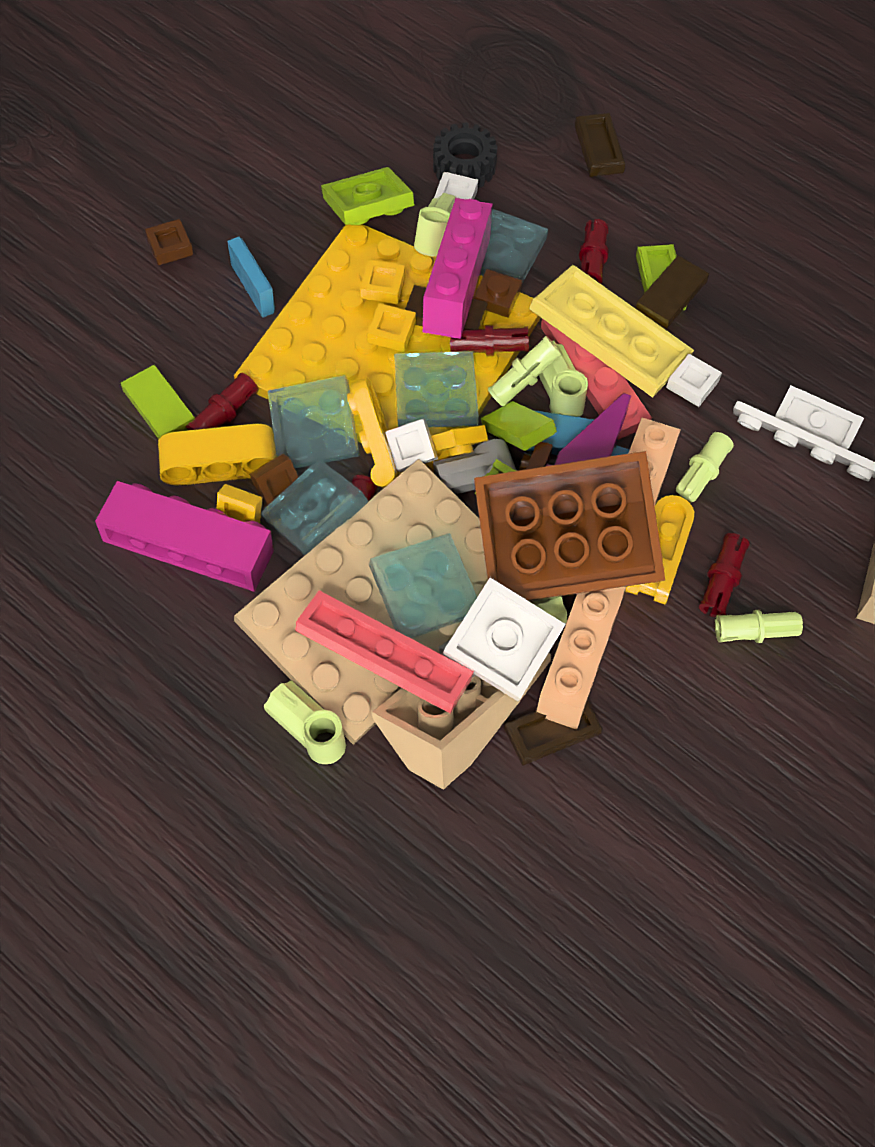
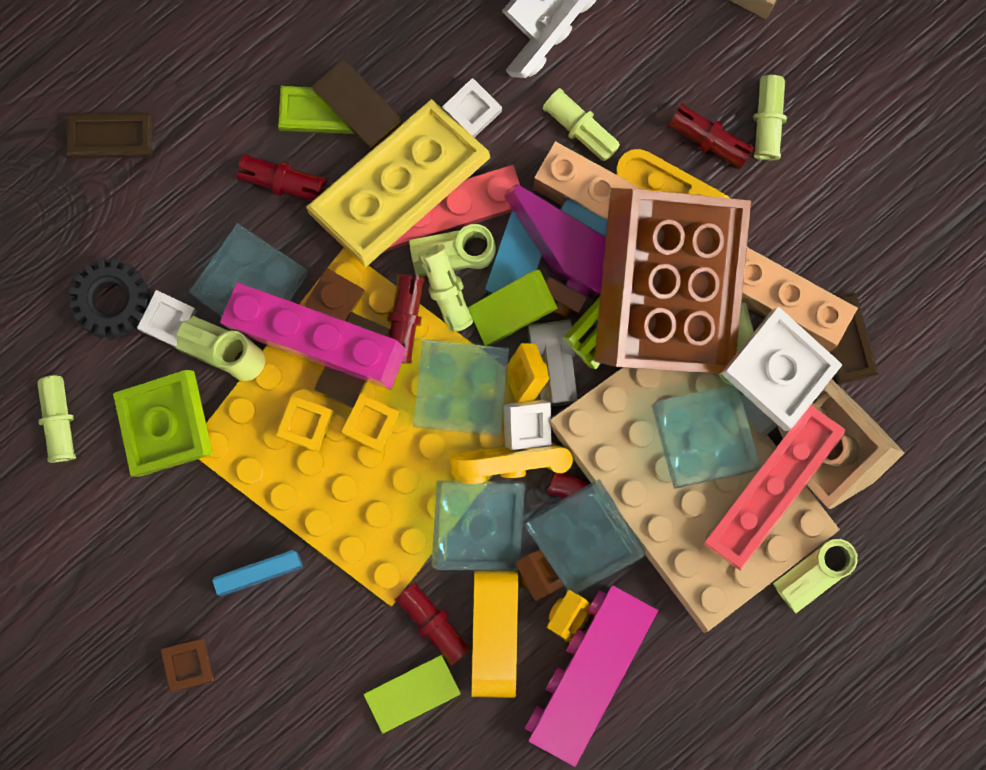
camera: 85 degrees left, 20 degrees up
(360, 137) = (55, 419): none -> yellowish green axle

